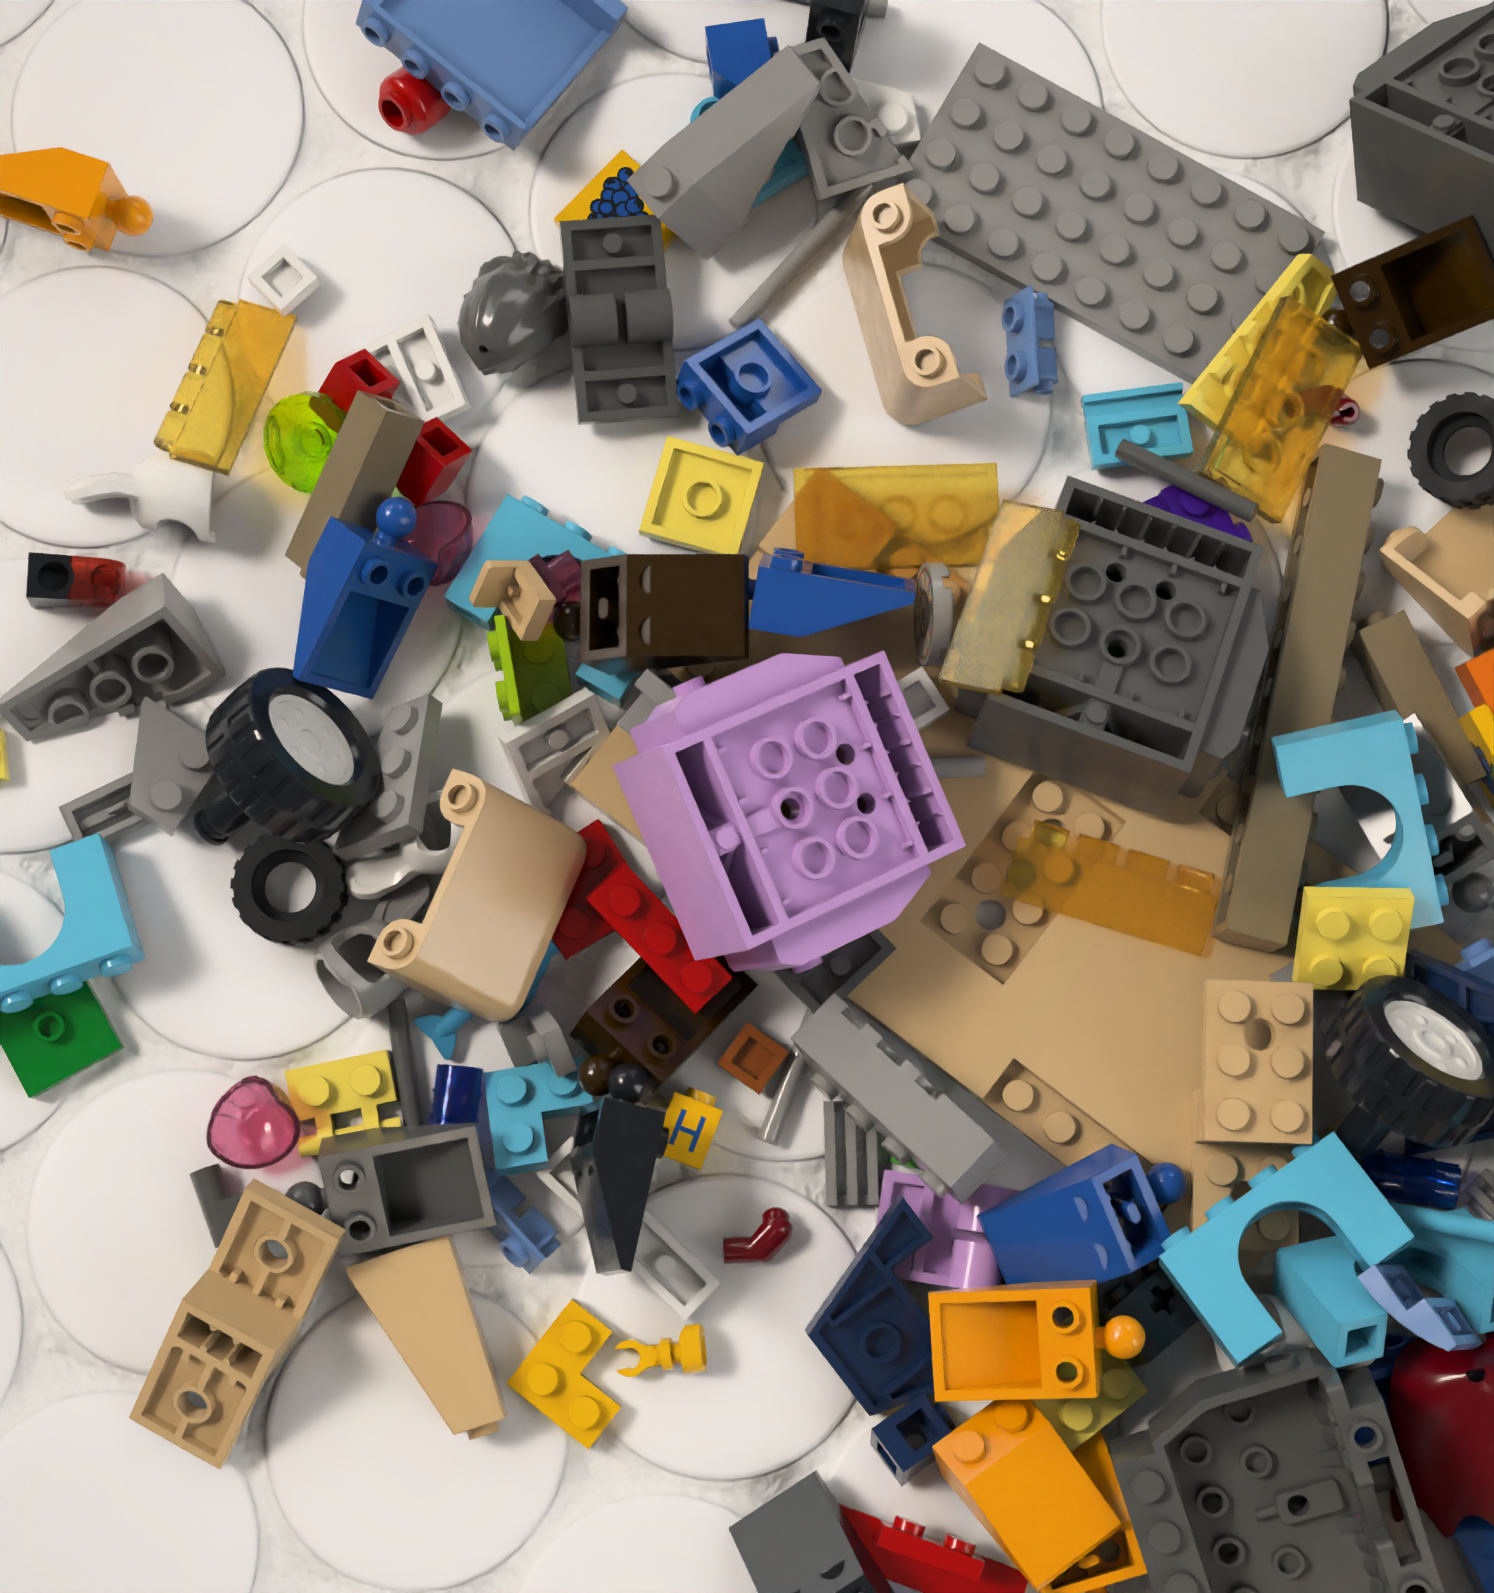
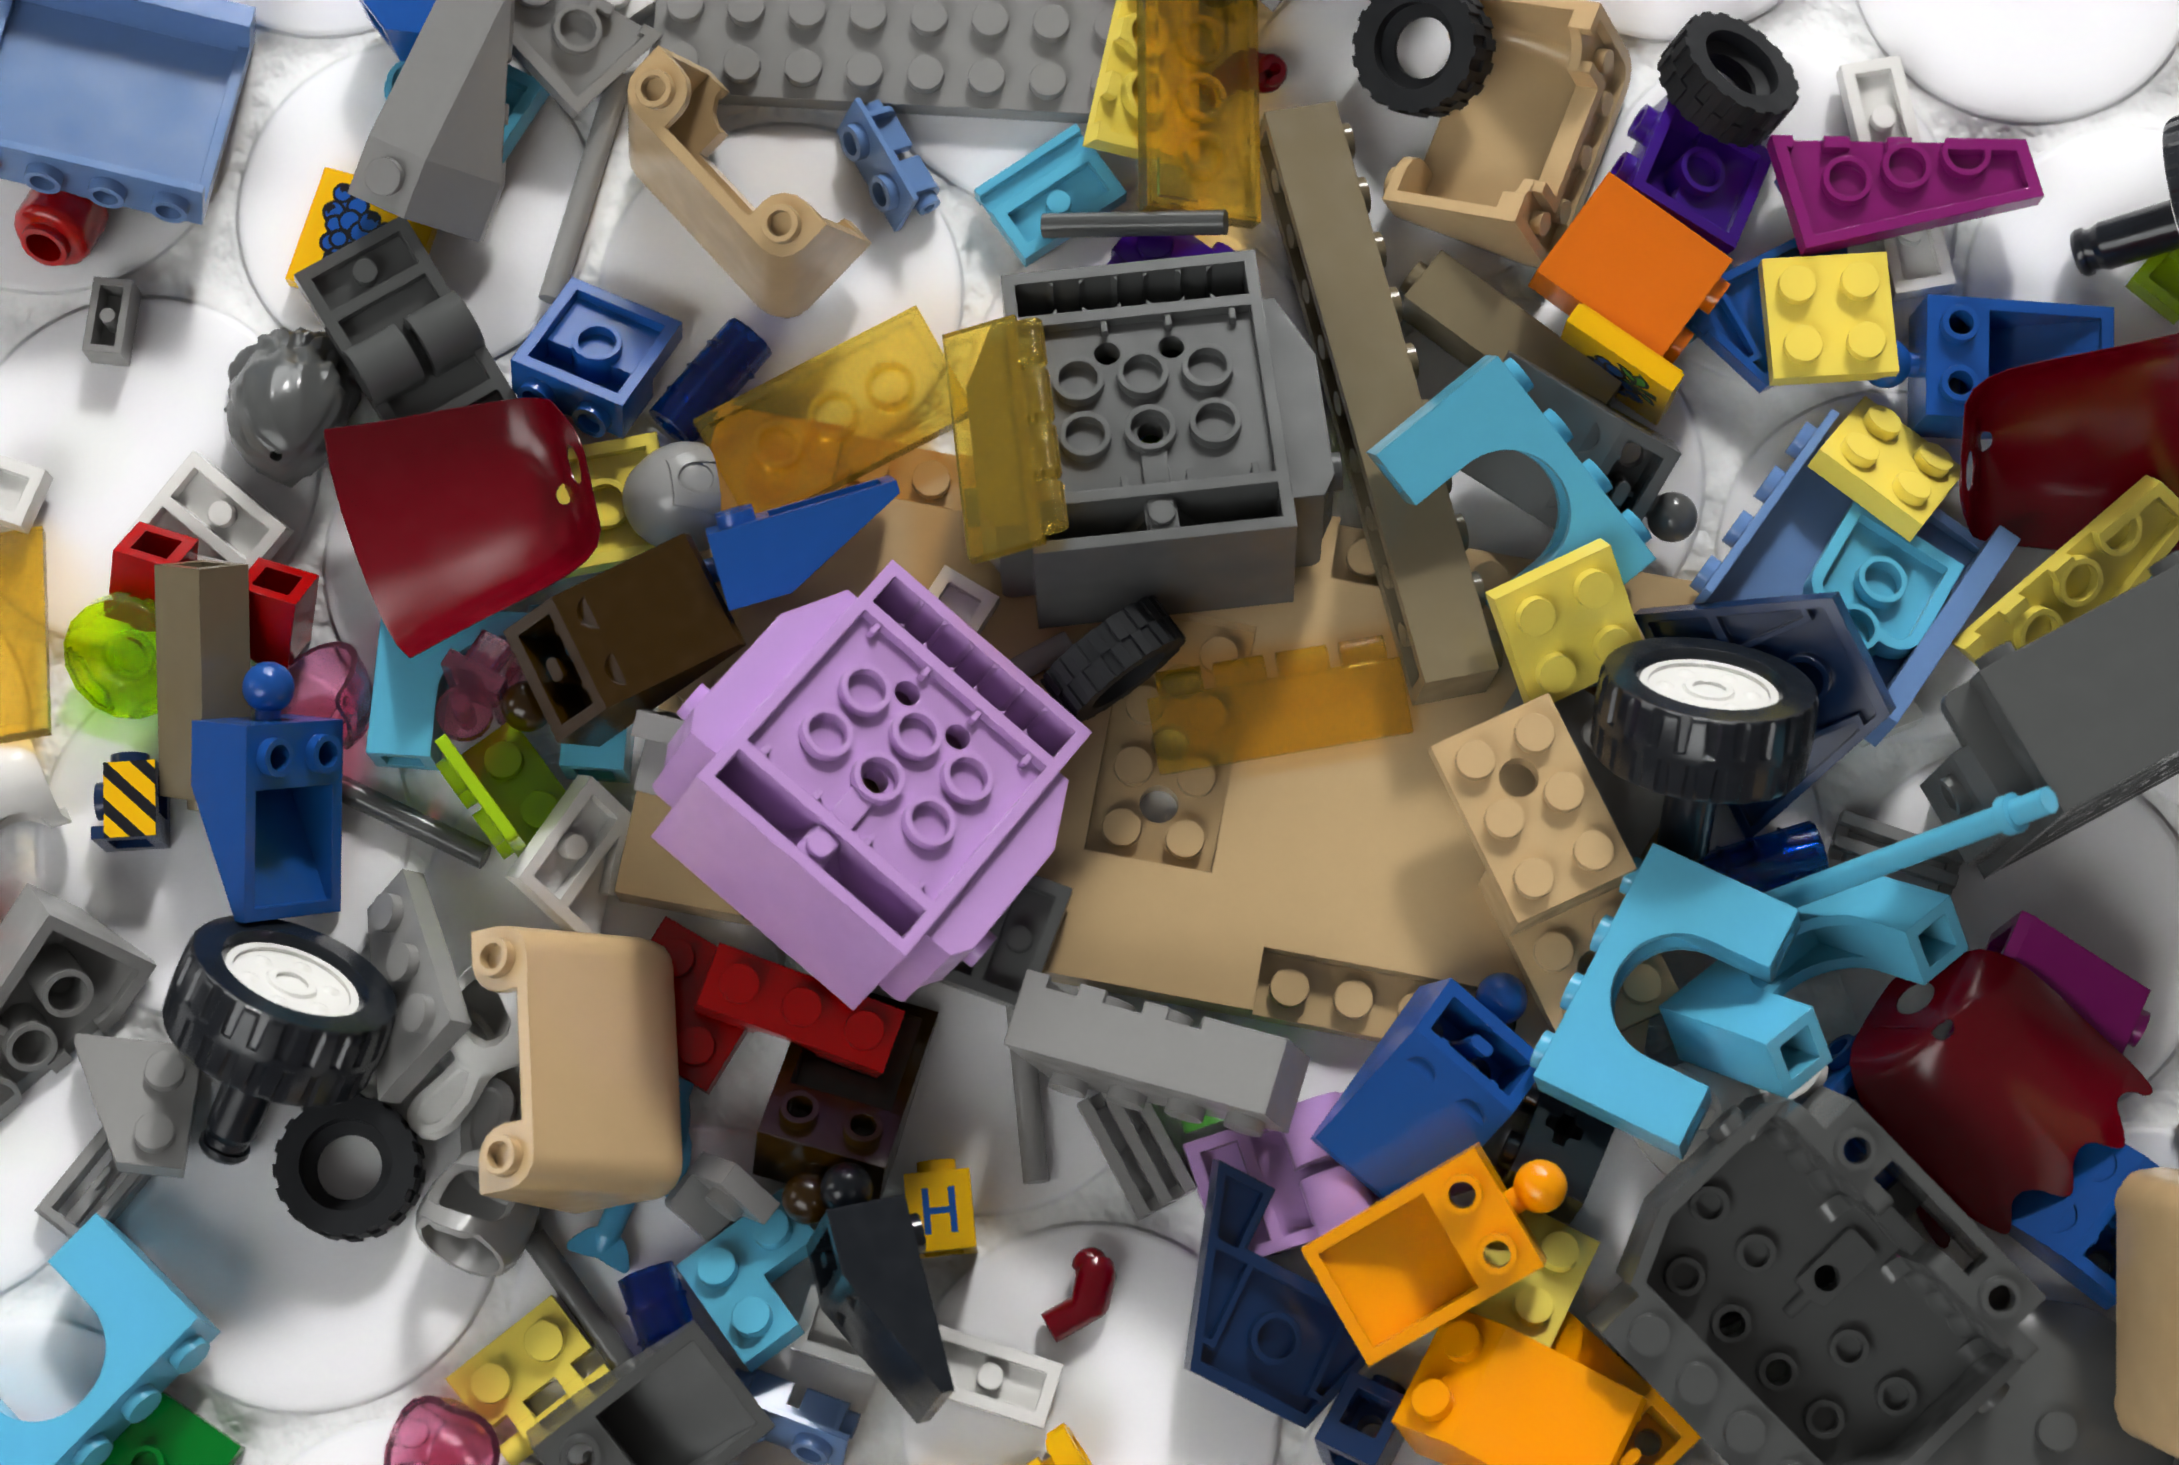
camera: 25 degrees left, 5 degrees down
(262, 551) = (131, 805): none -> brick
(416, 189) = (111, 321): none -> light grey piece
(454, 662) = (414, 823): none -> dark grey bar
(517, 593) = (449, 703): tan bracket -> none
(595, 456) = (461, 512): none -> dark red piece
(753, 517) = (674, 493): none -> light grey helmet
(753, 1058) = (973, 1095): dark orange plate -> none
(822, 443) = (710, 379): none -> clear blue axle
(933, 614) = (928, 500): light grey tile -> none
(1008, 798) = (1113, 659): none -> black tyre
(1430, 1318) = (1854, 990): medium blue slope -> none

